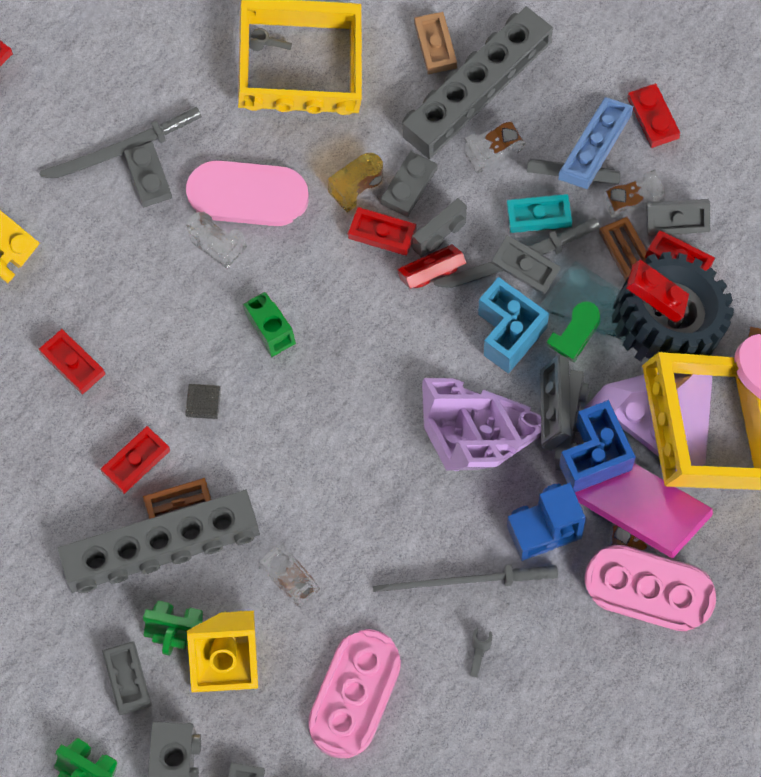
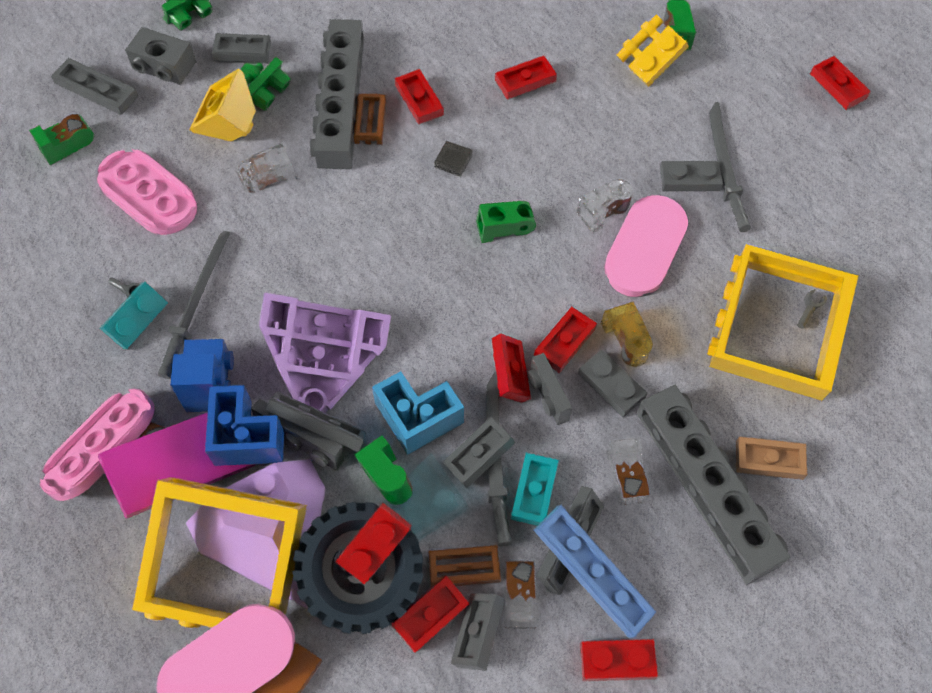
camera: 105 degrees right, 5 degrees down
(508, 624) = (134, 315): none -> teal plate

